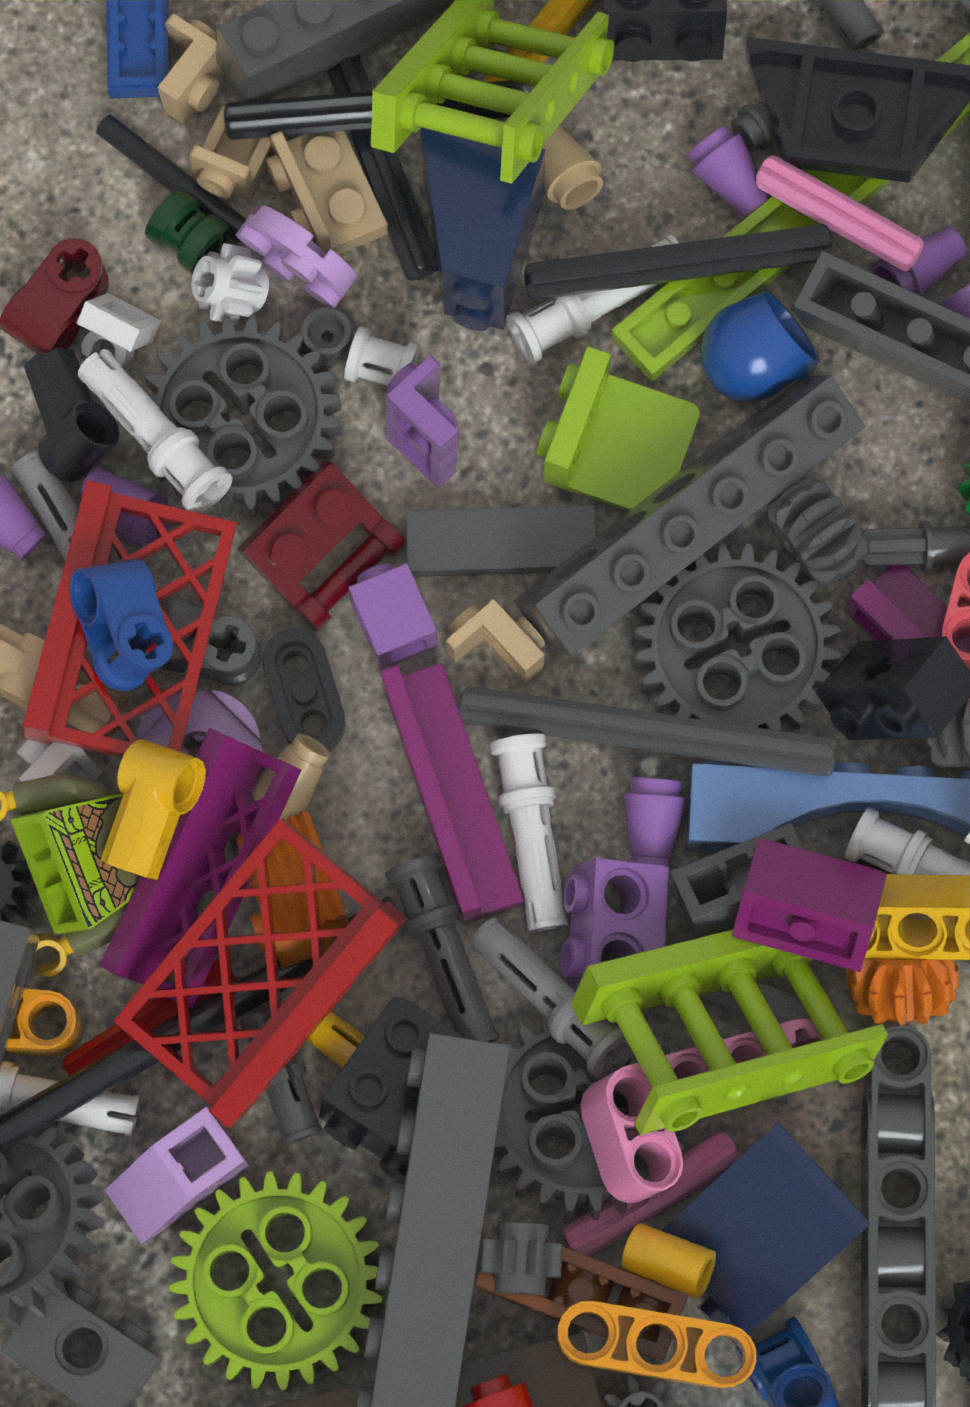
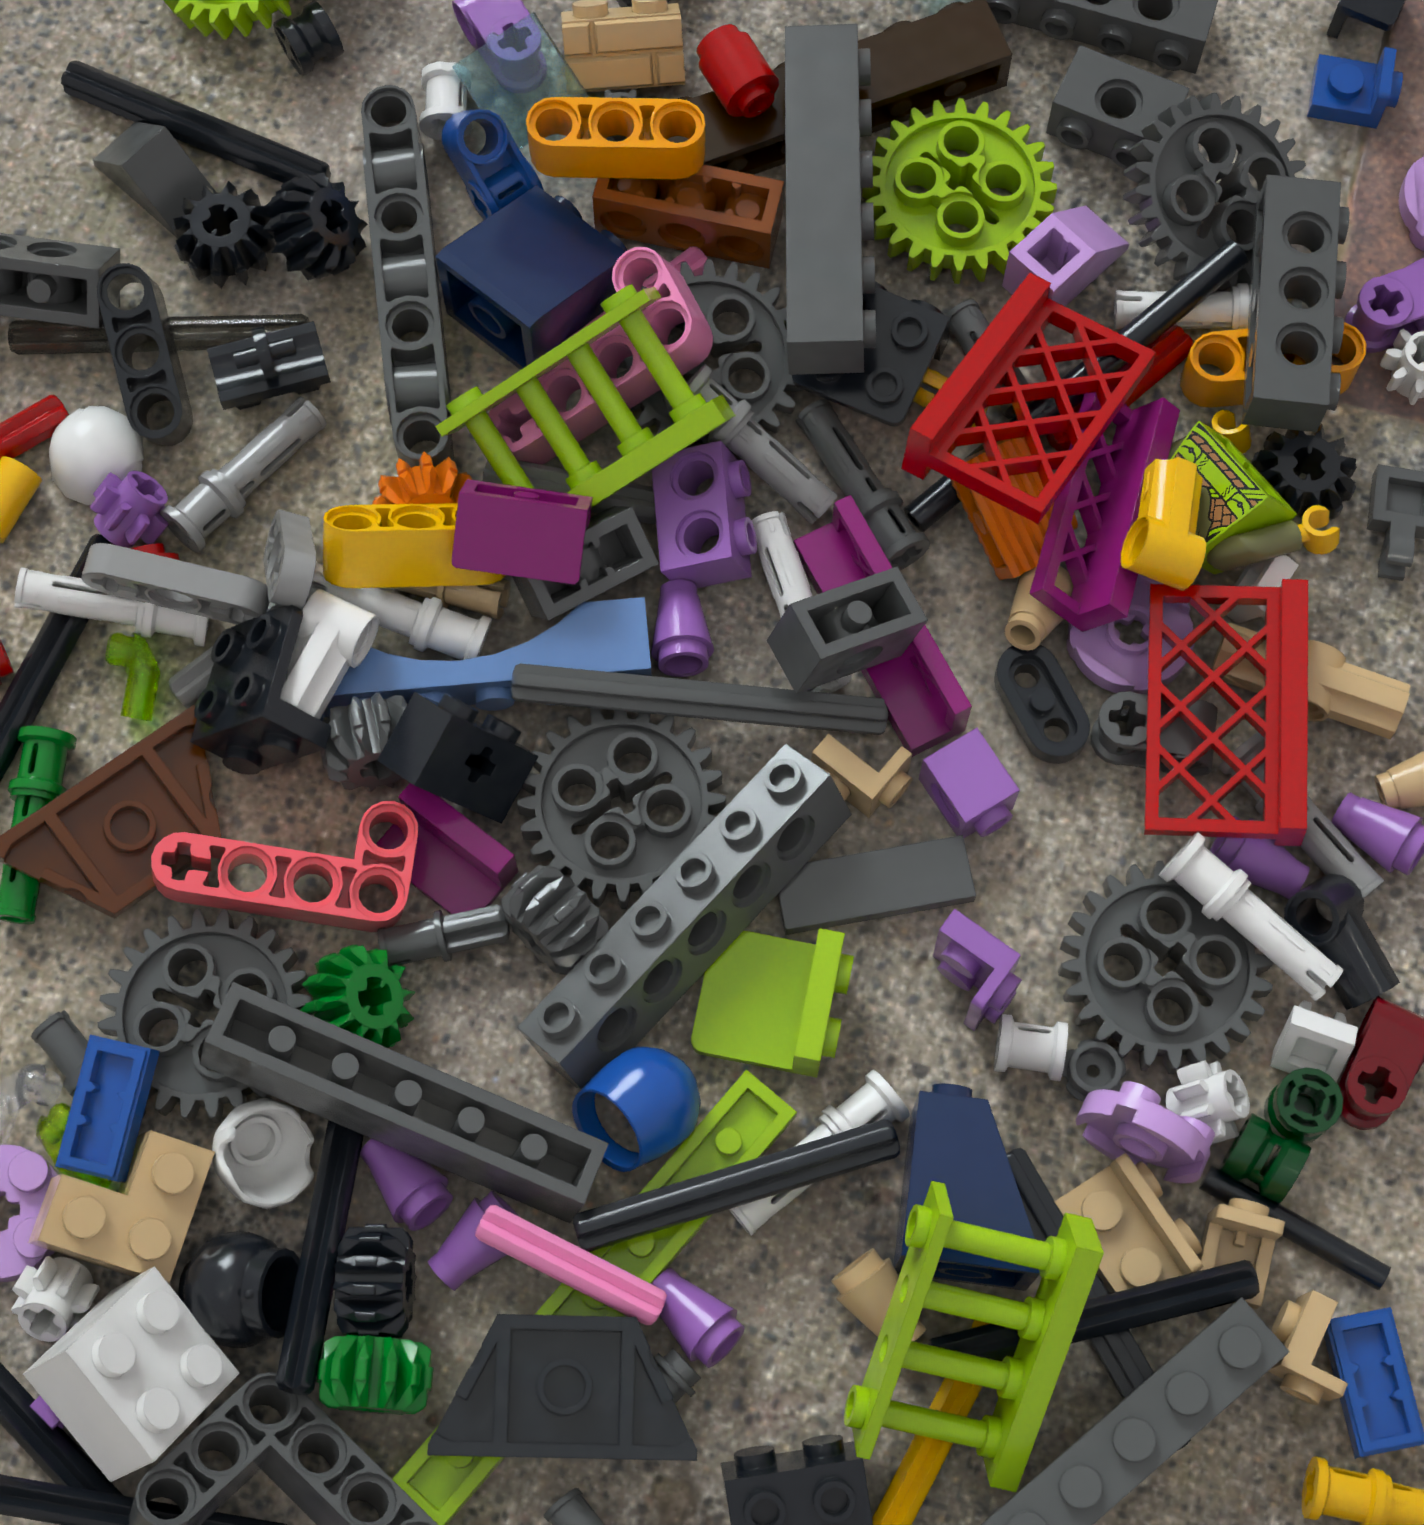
camera: 170 degrees right, 5 degrees down
(121, 616) = (1241, 697): blue piece -> none
(146, 284) = (1293, 1113): none -> dark green wheel
(306, 531) = (1069, 855): dark red plate -> none
(493, 752) = (846, 629): none -> dark grey brick
(521, 1258) = (746, 186): dark grey gear -> none
(668, 1260) = (612, 222): yellow piece -> none

